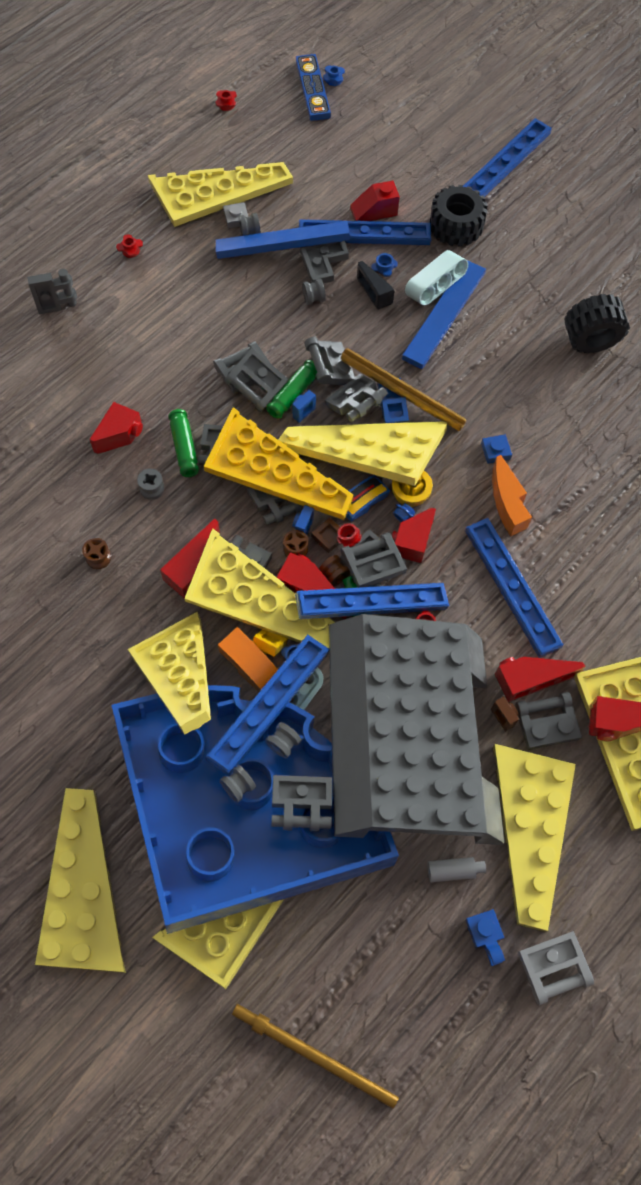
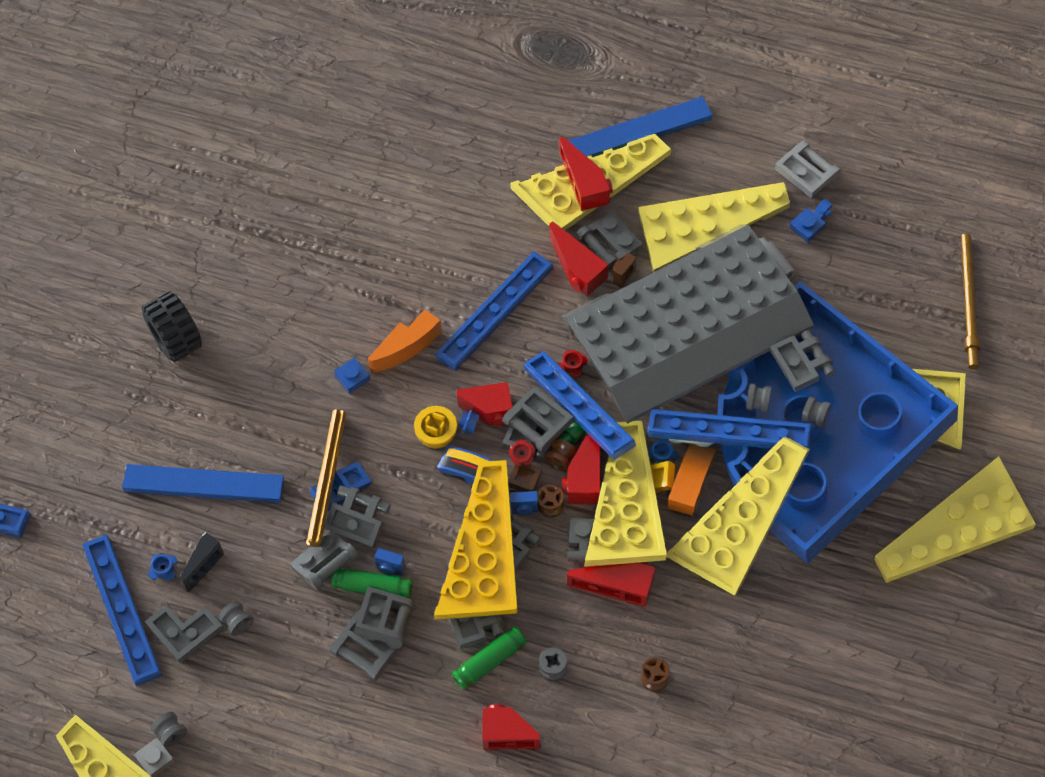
camera: 110 degrees left, 5 degrees down
(282, 239) = (178, 682): blue tile -> none
(376, 202) = (78, 609): red slope -> none
(383, 449) = (410, 474): light yellow wing -> none
(436, 277) = (165, 502): light aqua beam -> none
(458, 215) = (57, 497): black tyre -> none

